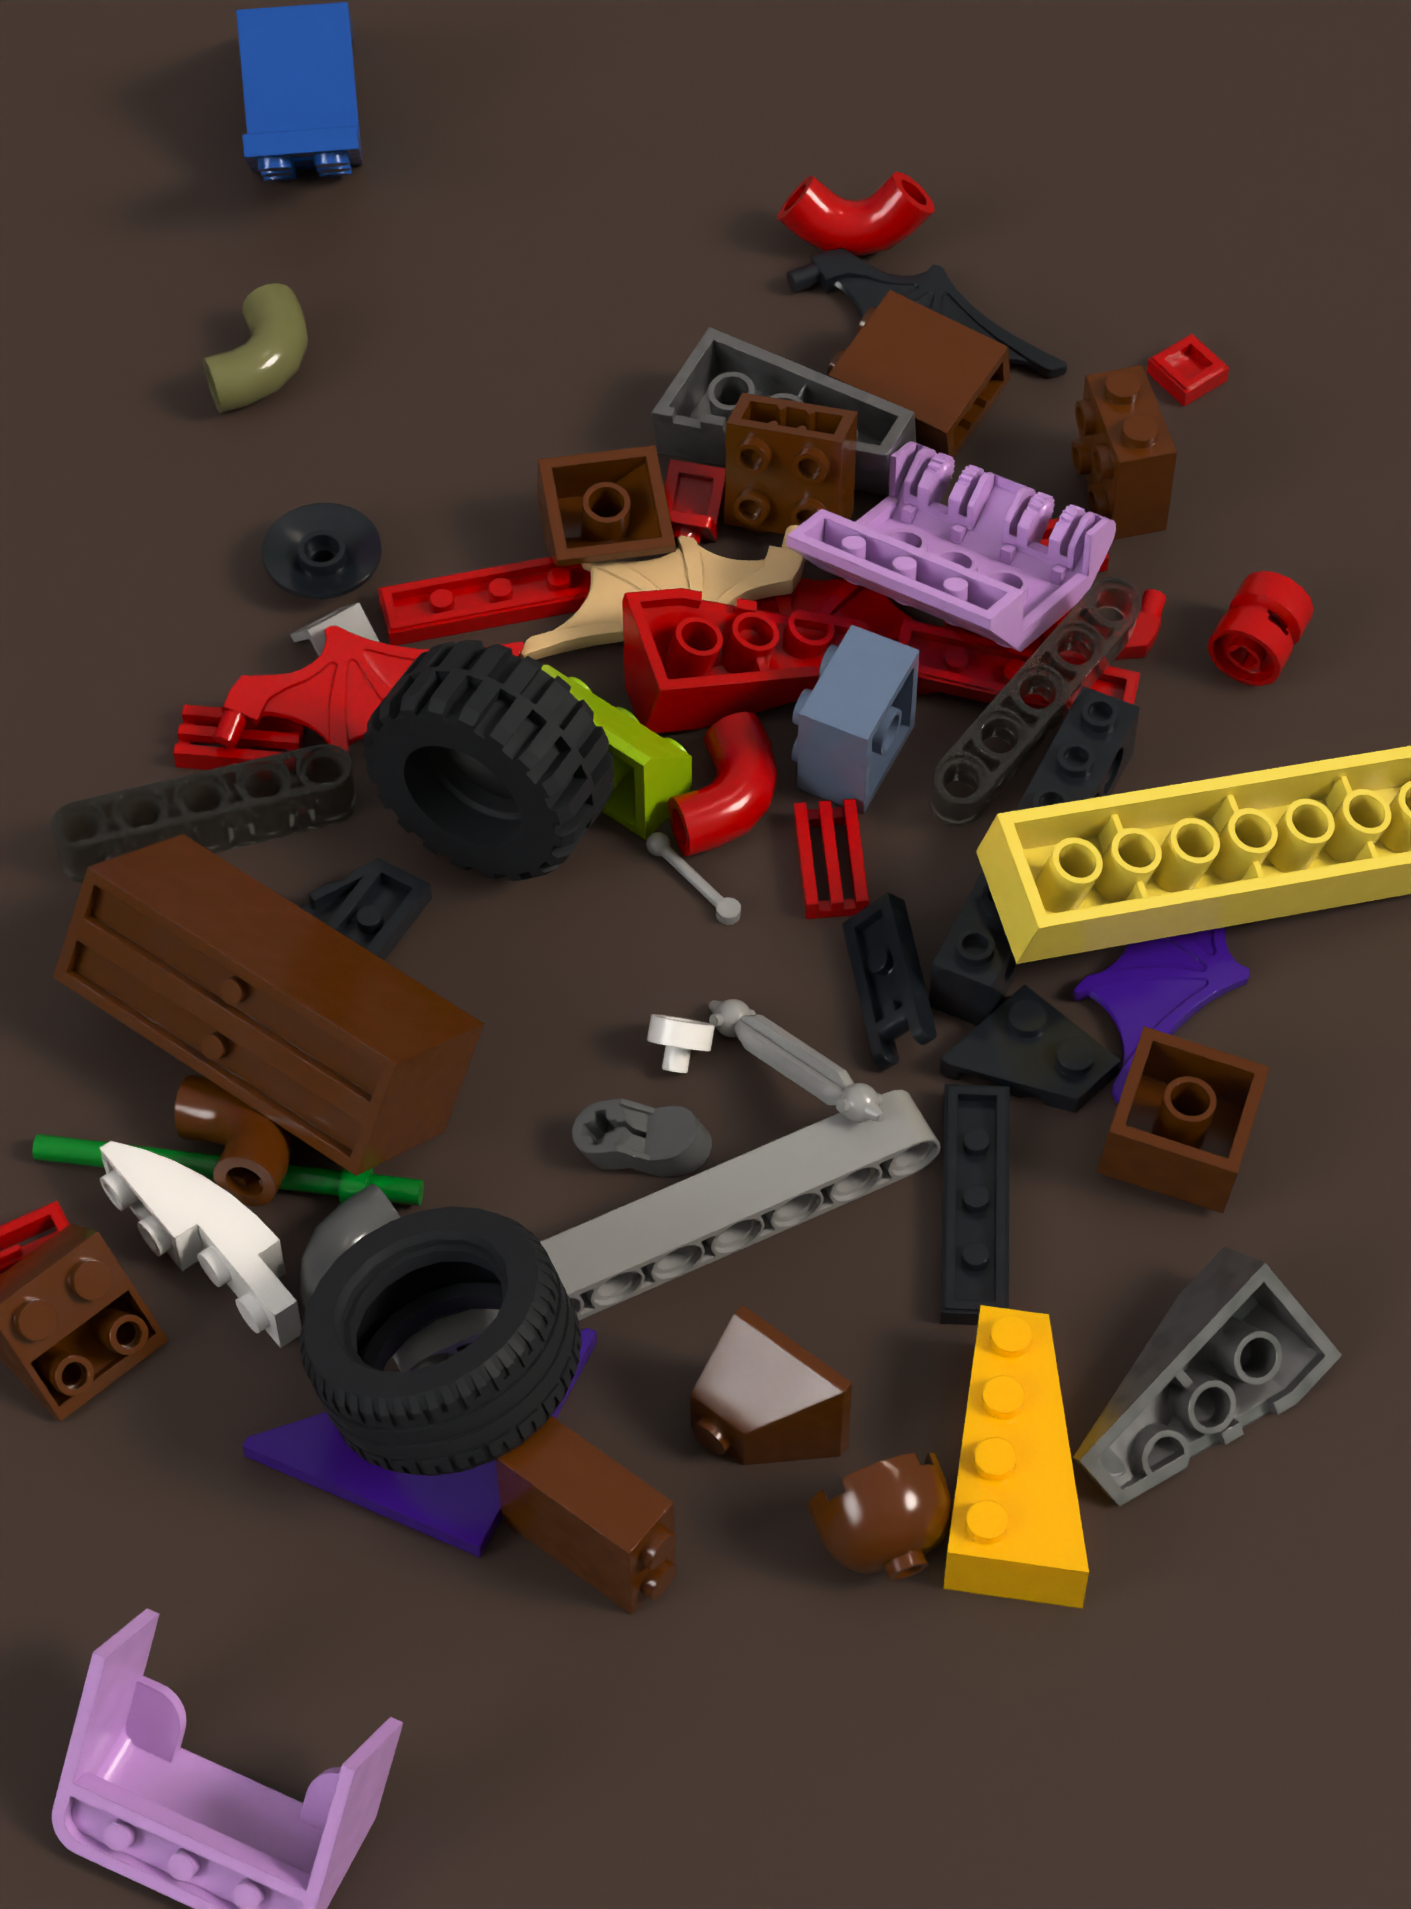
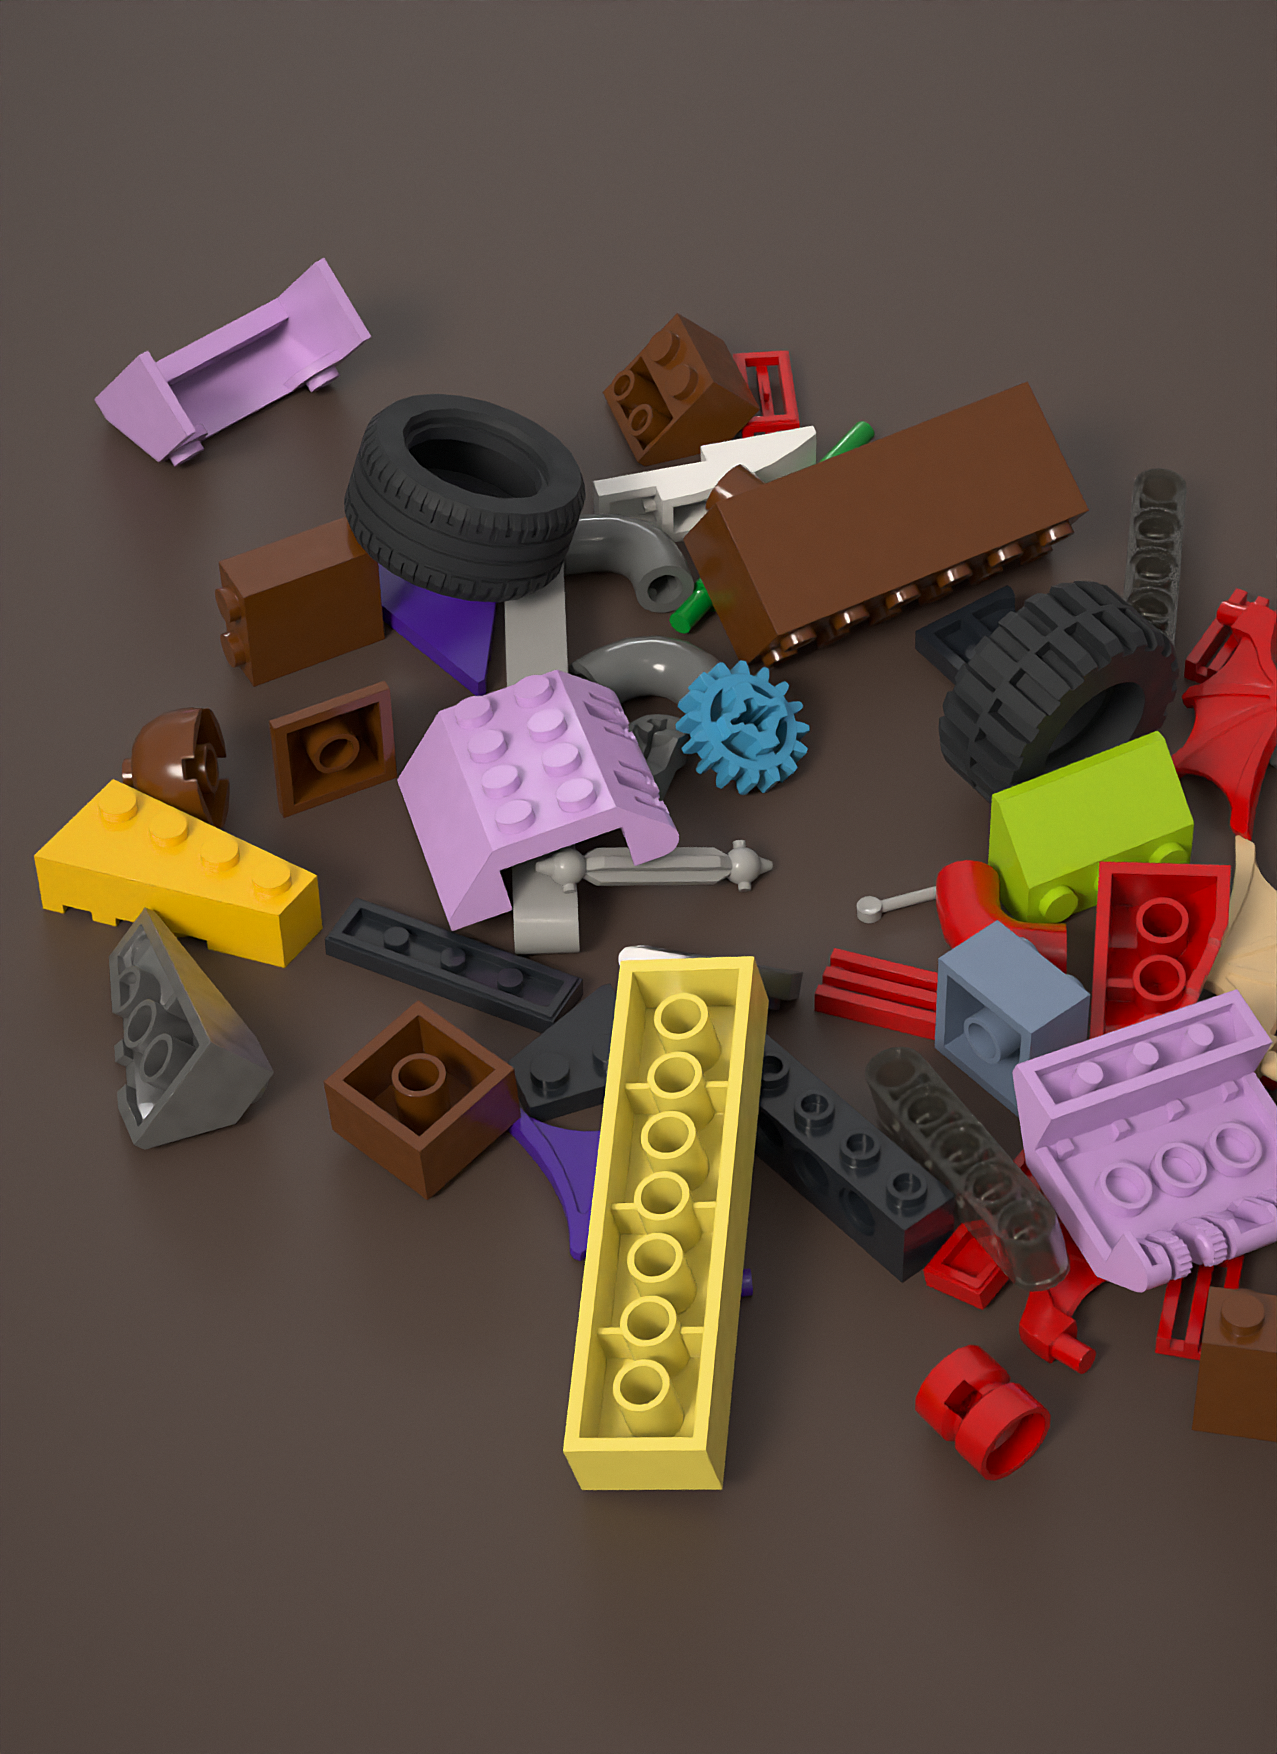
camera: 115 degrees right, 10 degrees down
(509, 1169) = (645, 667): none -> dark grey cylinder
(574, 1057) = (742, 727): none -> dark azure gear
(680, 1038) = (737, 814): white tile -> none
(785, 1173) = (523, 779): none -> lavender slope

